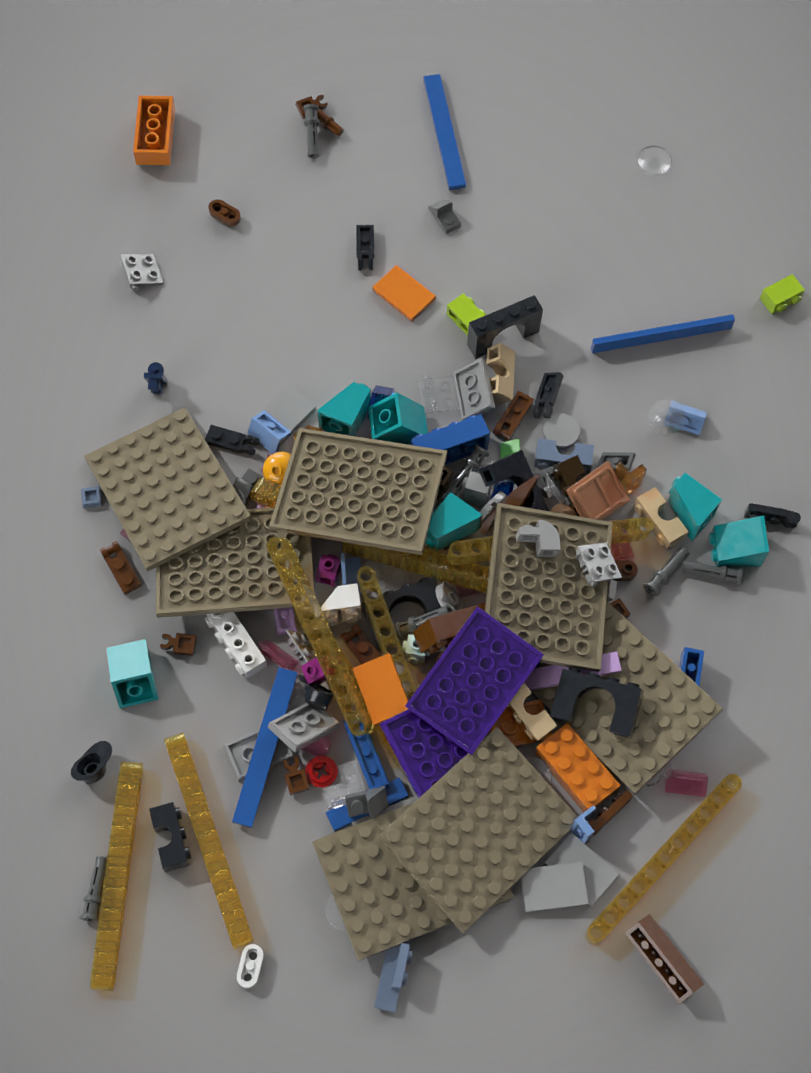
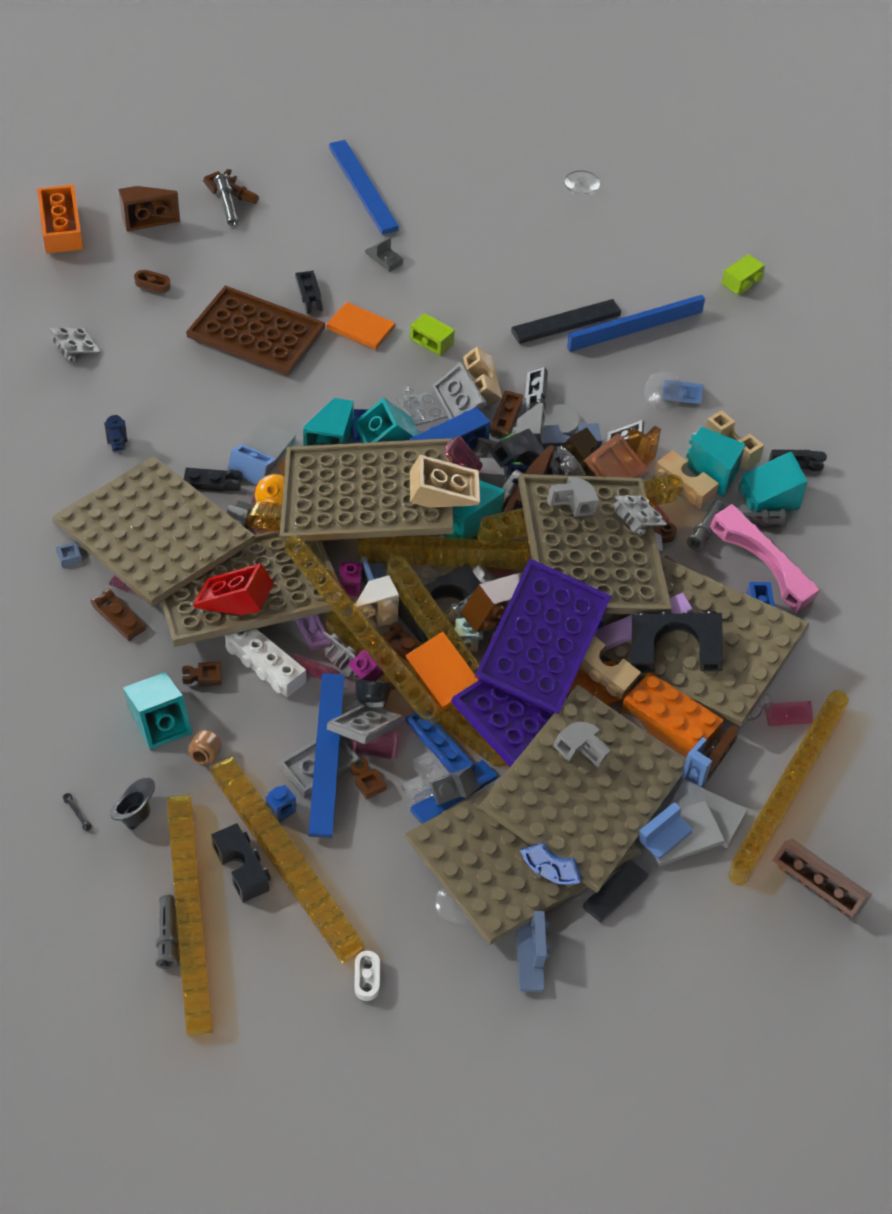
camera: 15 degrees left, 15 degrees down
(41, 742) = (67, 798): none -> black hinge
(164, 718) = (205, 747): none -> medium nougat head
(215, 787) = (279, 798): none -> blue brick
(219, 574) = (236, 591): none -> red slope
(236, 130) = (148, 207): none -> reddish brown slope
(306, 283) = (256, 330): none -> reddish brown plate
(317, 763) = (388, 763): red gear -> none
(424, 505) = (443, 484): none -> tan slope
(430, 905) = (550, 866): none -> tile
(451, 474) = (460, 454): none -> clear pink slope
(482, 929) = (615, 891): none -> black tile
(483, 787) = (581, 738): none -> light grey brick
(524, 314) = (456, 336): black arch -> none
(529, 440) = (534, 420): none -> light grey slope
(538, 885) = (664, 831): none -> medium blue panel
(597, 319) = (566, 321): none -> black tile
(709, 474) = (725, 425): none -> tan arch
(729, 656) = (736, 529): none -> bright pink arch

